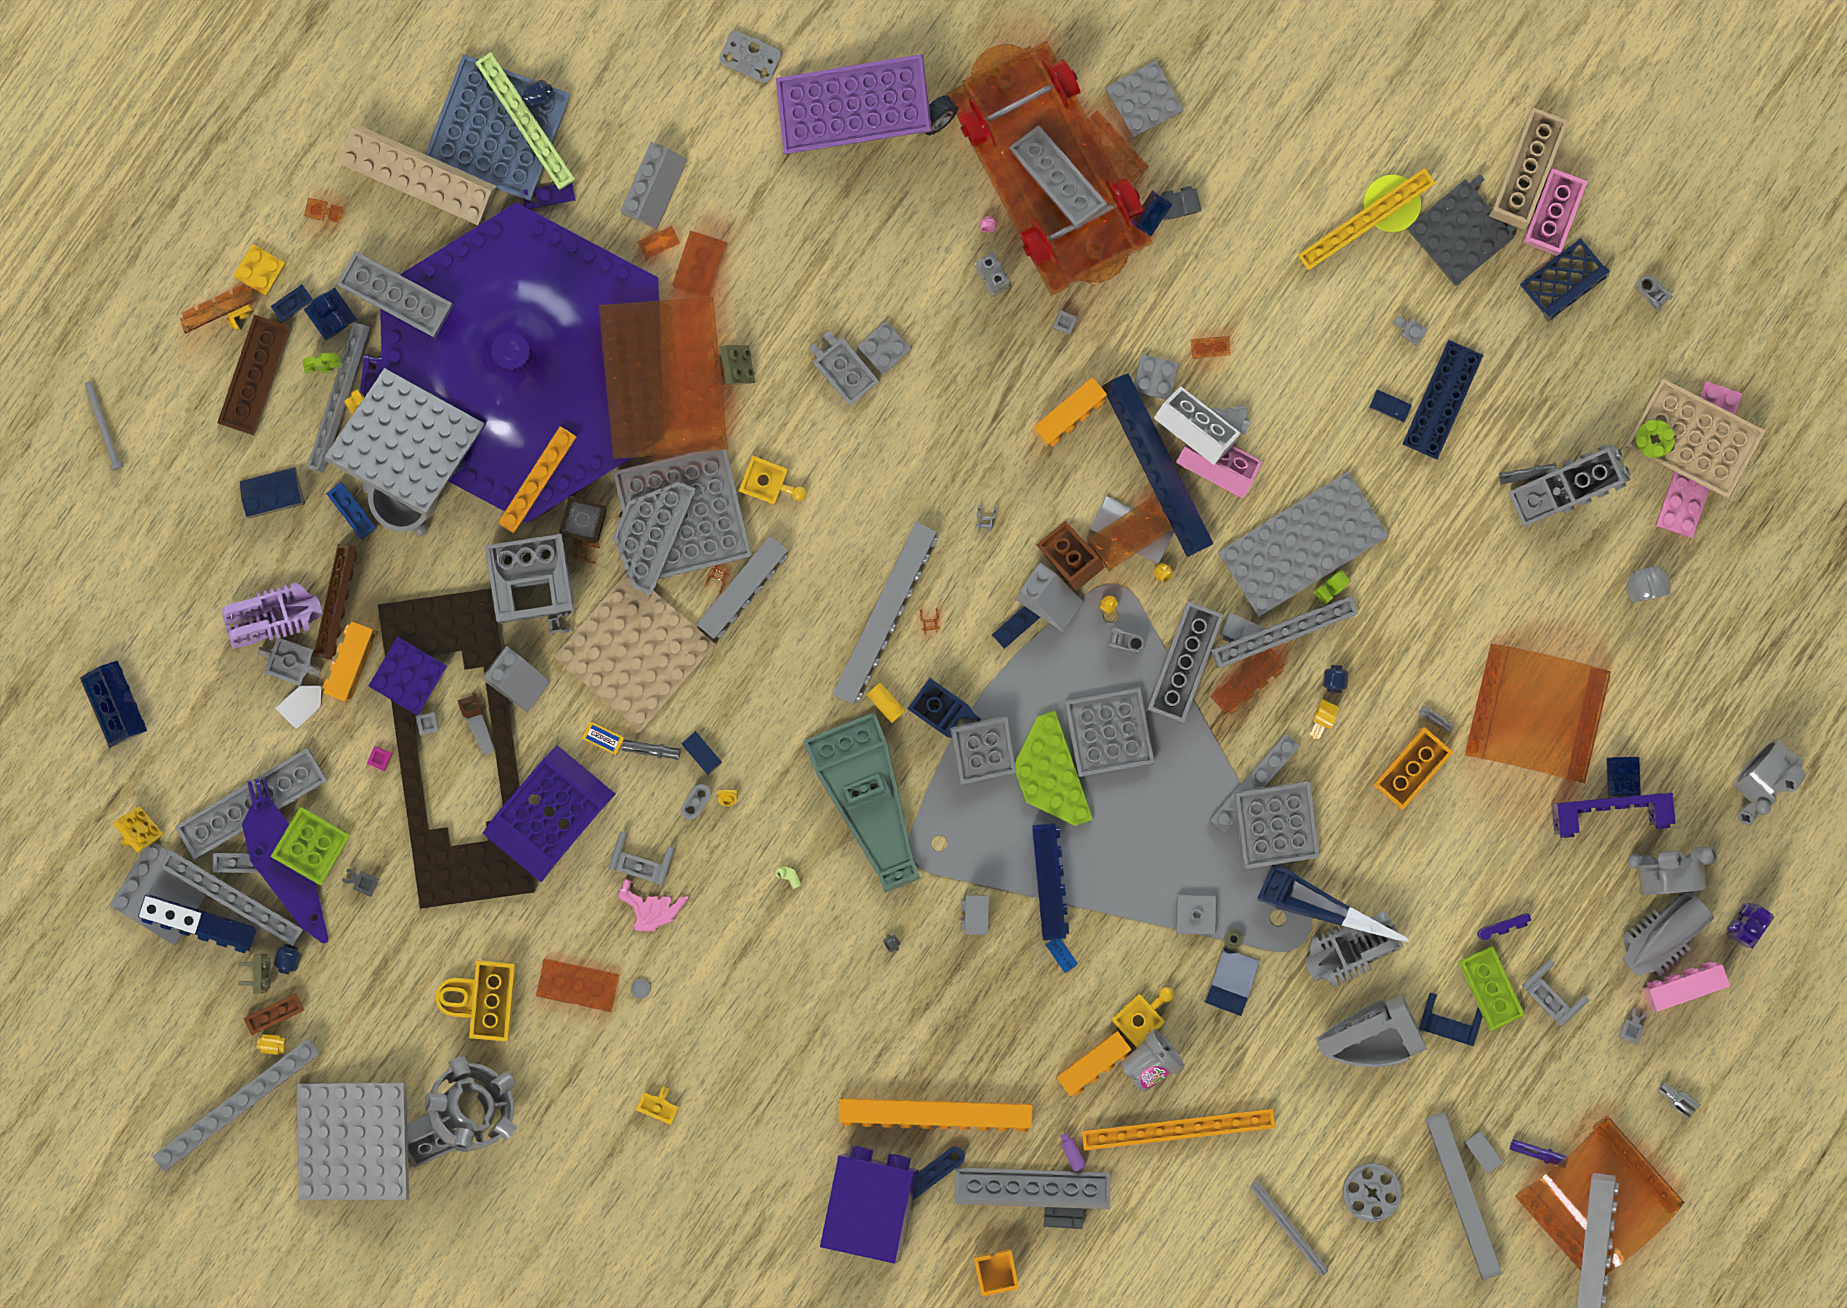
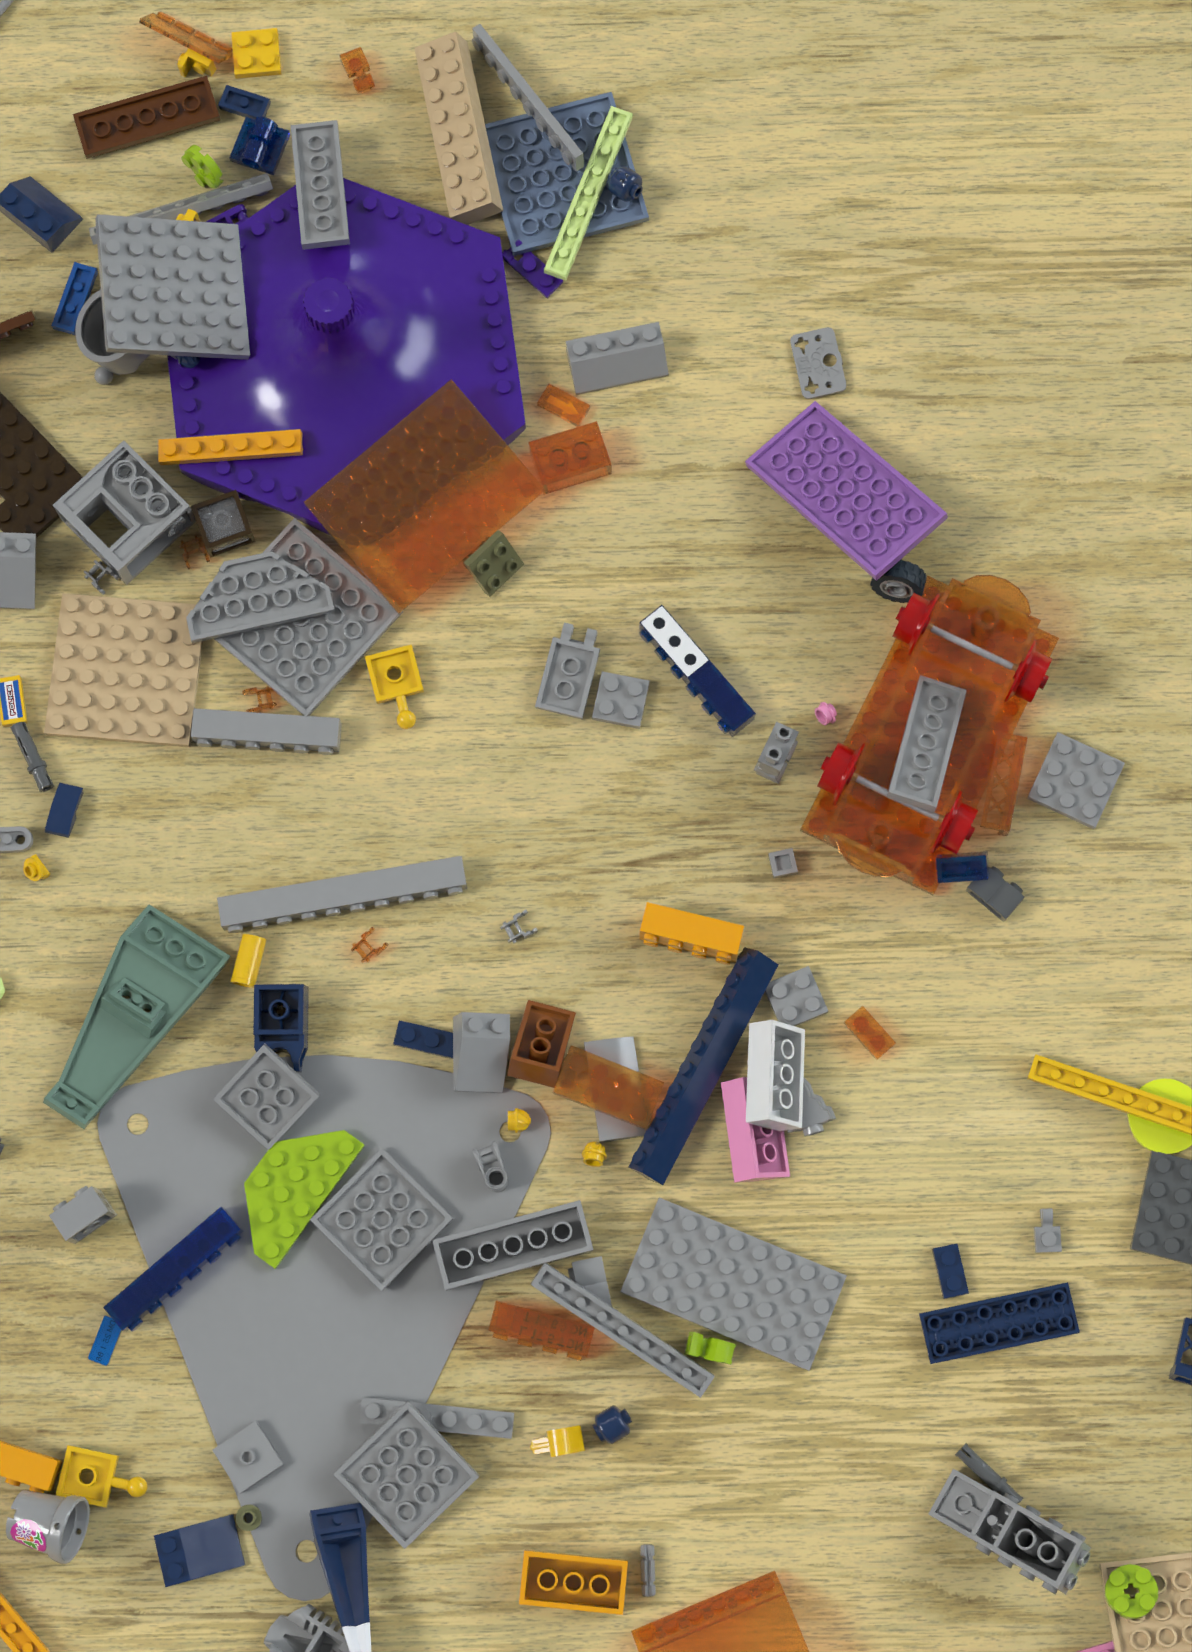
camera: 60 degrees right, 10 degrees down
(437, 114) = (531, 102): none -> light grey plate
(901, 286) = (697, 671): none -> clear blue brick

